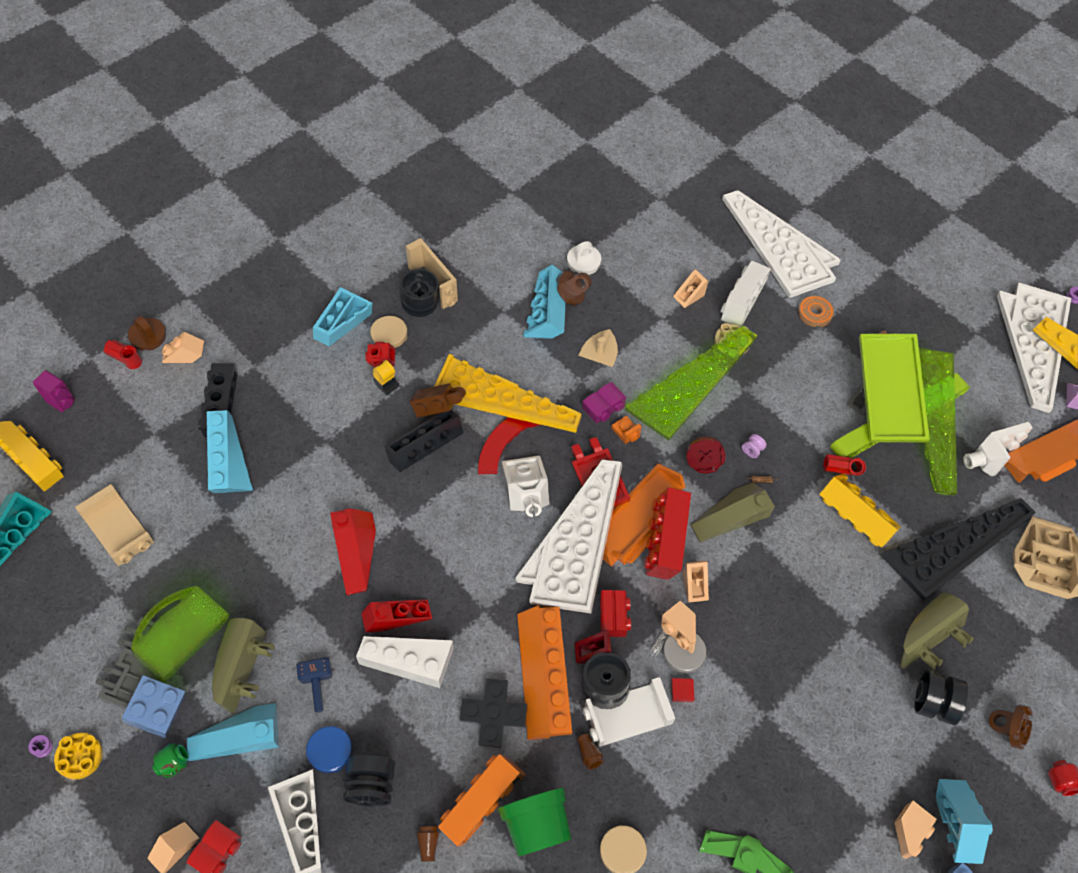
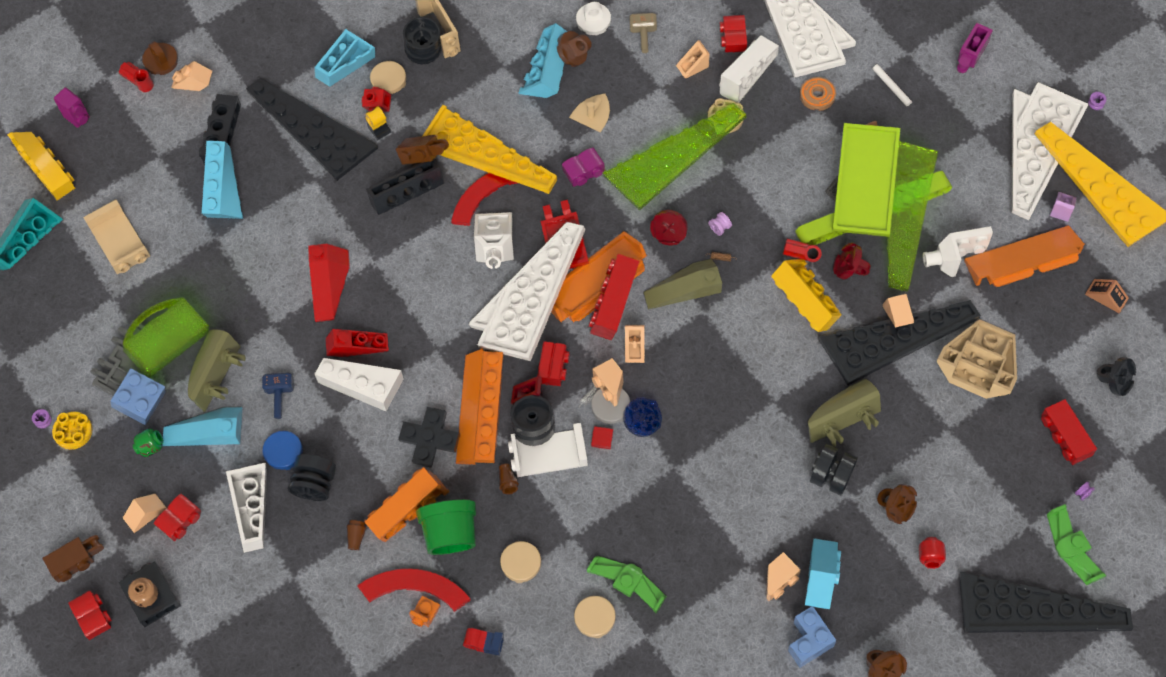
camera: 15 degrees right, 5 degrees up
(331, 399) = (325, 139): none -> black wing
(627, 430) = (600, 196): orange bracket -> none
(634, 260) = (643, 23): none -> dark tan piece
(722, 661) = (642, 417): none -> clear blue tile
(723, 262) = (734, 33): none -> red brick
(875, 291) = (891, 84): none -> white bar
(894, 471) = (850, 262): none -> dark red tile
(952, 255) = (973, 47): none -> magenta brick
(957, 516) = (899, 310): none -> light nougat slope

